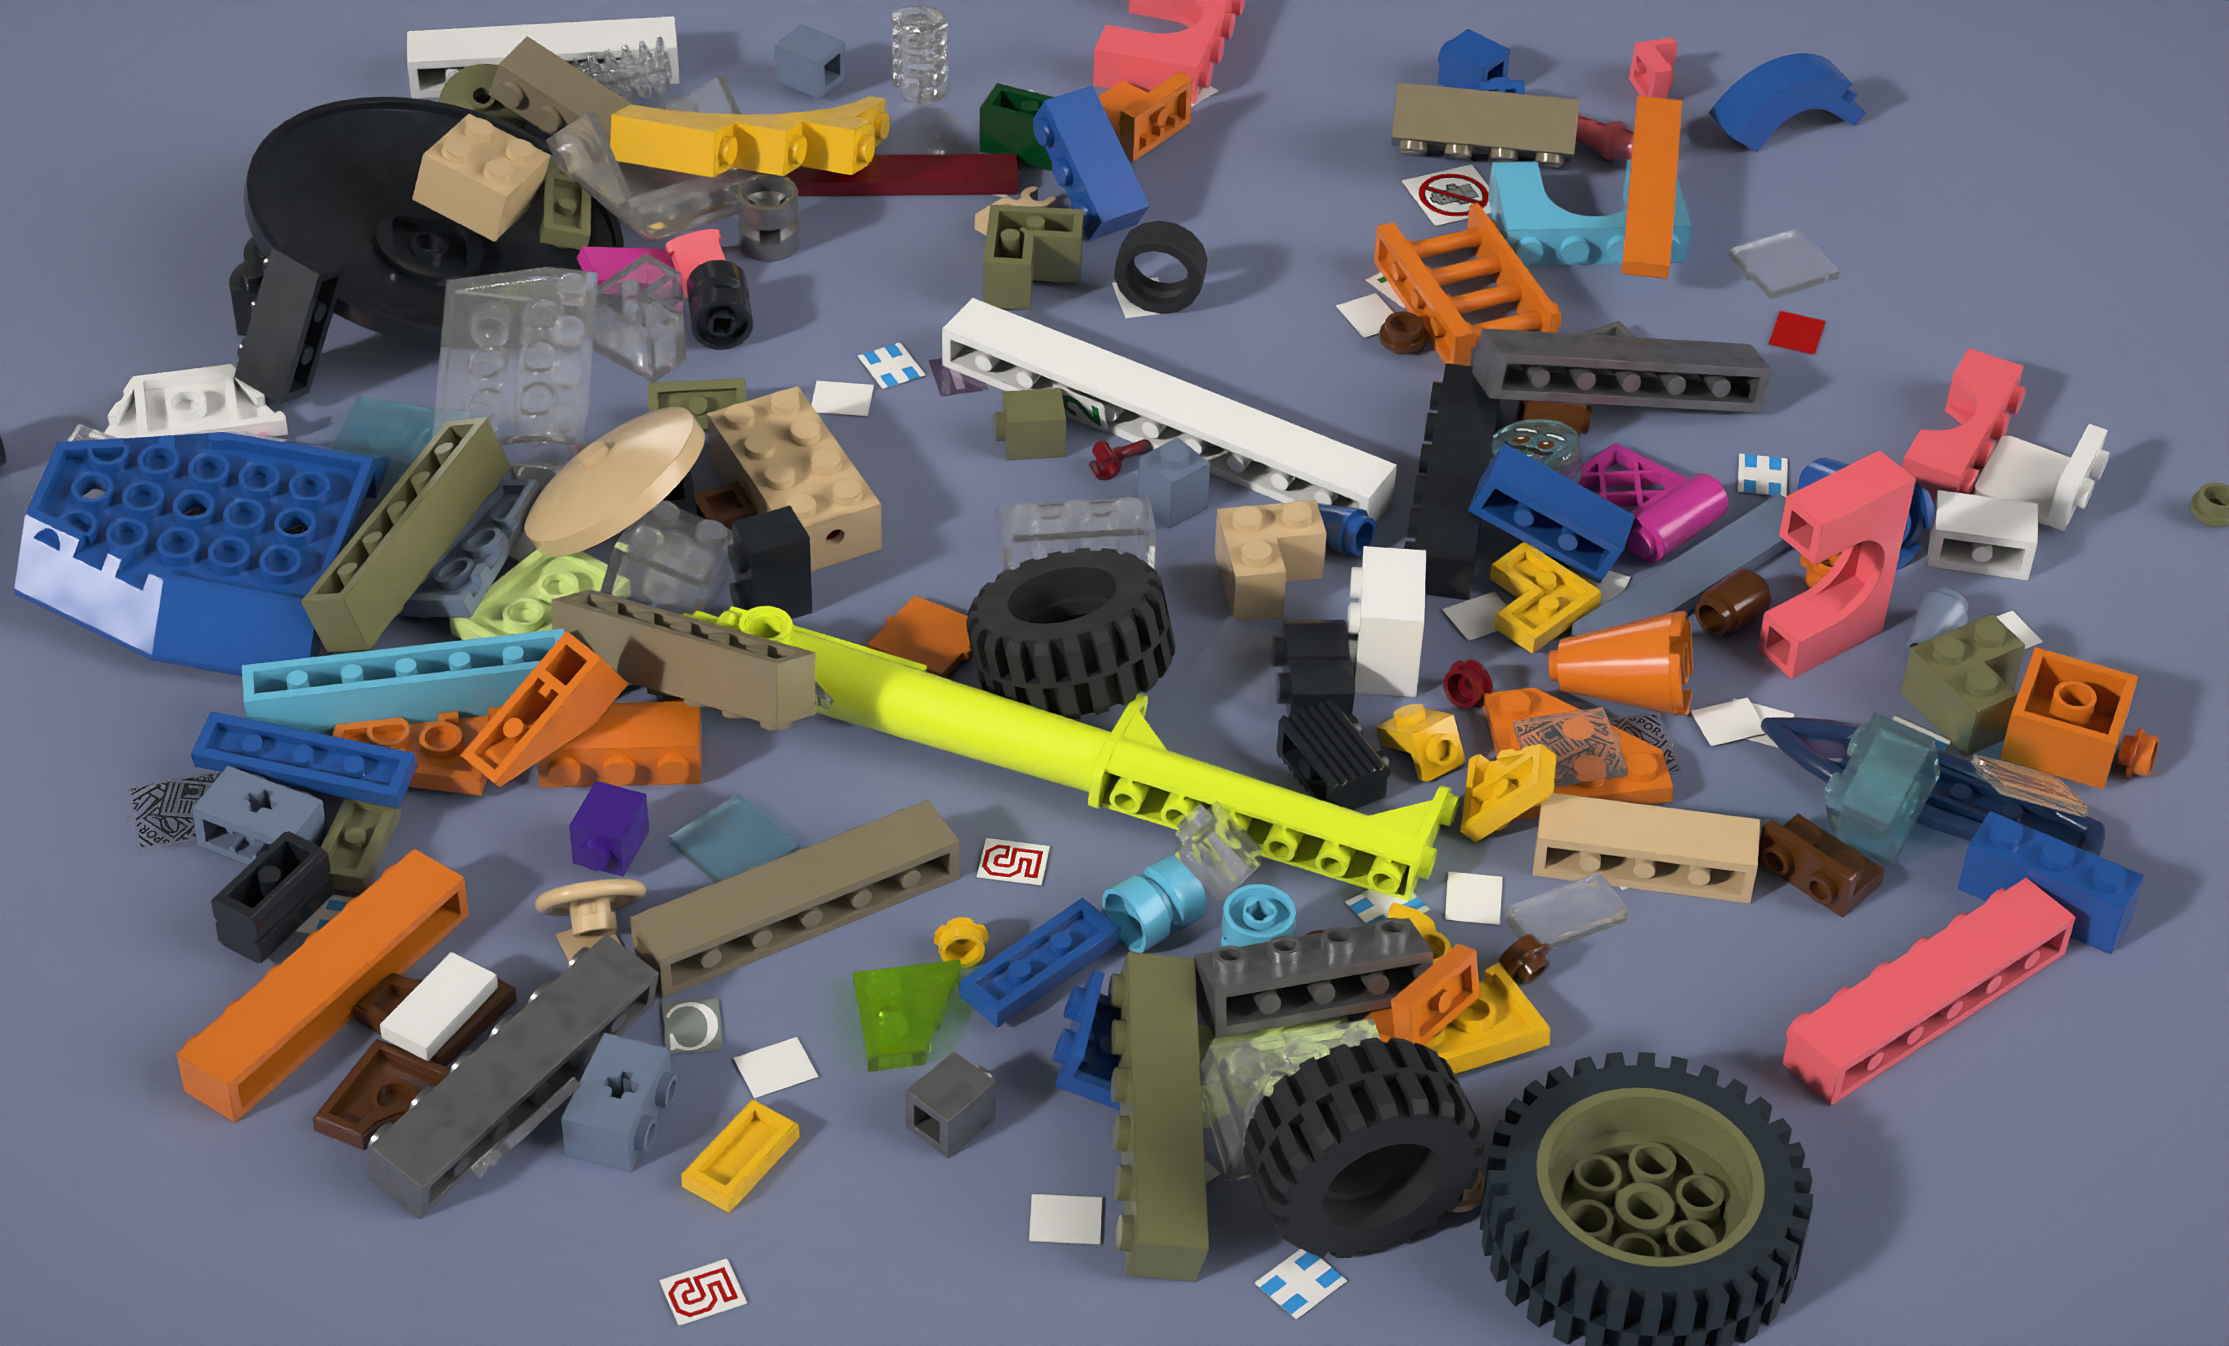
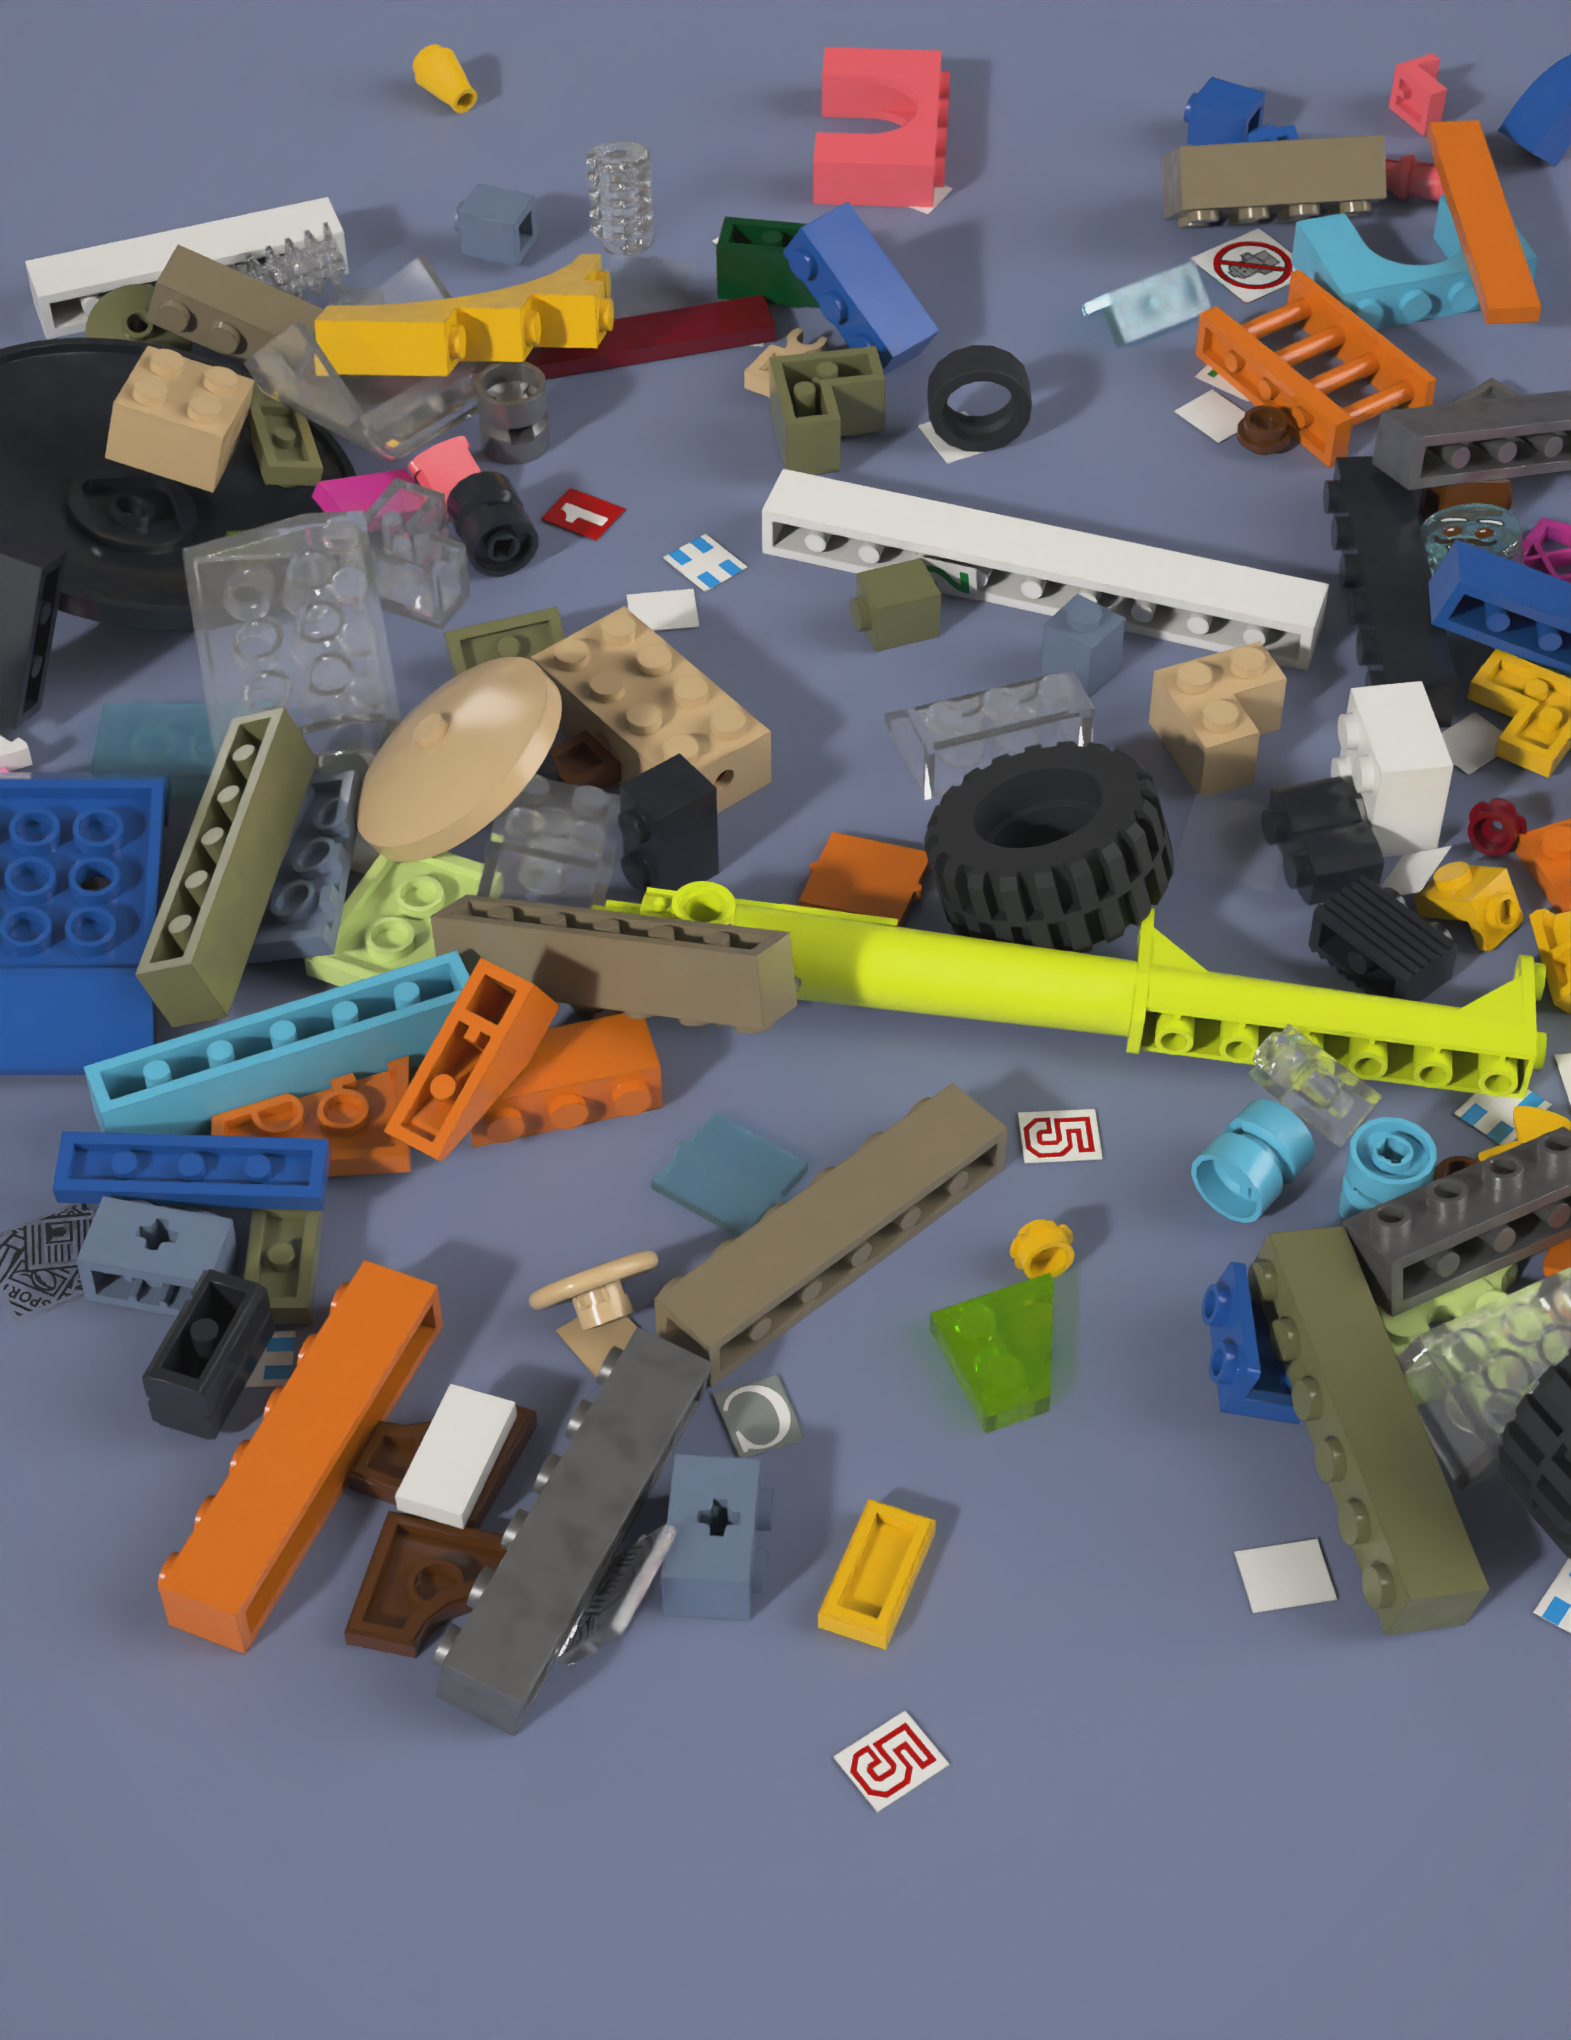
camera: 10 degrees left, 5 degrees up
(609, 828) = (585, 1188): dark purple brick -> none
(775, 1067) = (876, 1449): white sticker -> none
(804, 310) = (583, 514): none -> red sticker
(951, 1104) = (1108, 1459): flat silver brick -> none
(953, 382) = (781, 570): clear purple sticker -> none
(1039, 962) = (1142, 1258): blue plate -> none
(1109, 459) = (995, 630): dark red hand -> none
(1148, 118) = (907, 224): orange bracket -> none
(1346, 212) = (1152, 304): none -> clear light blue panel
(1347, 529) = (1300, 665): blue cone -> none
(1384, 707) = (1414, 870): none -> white sticker

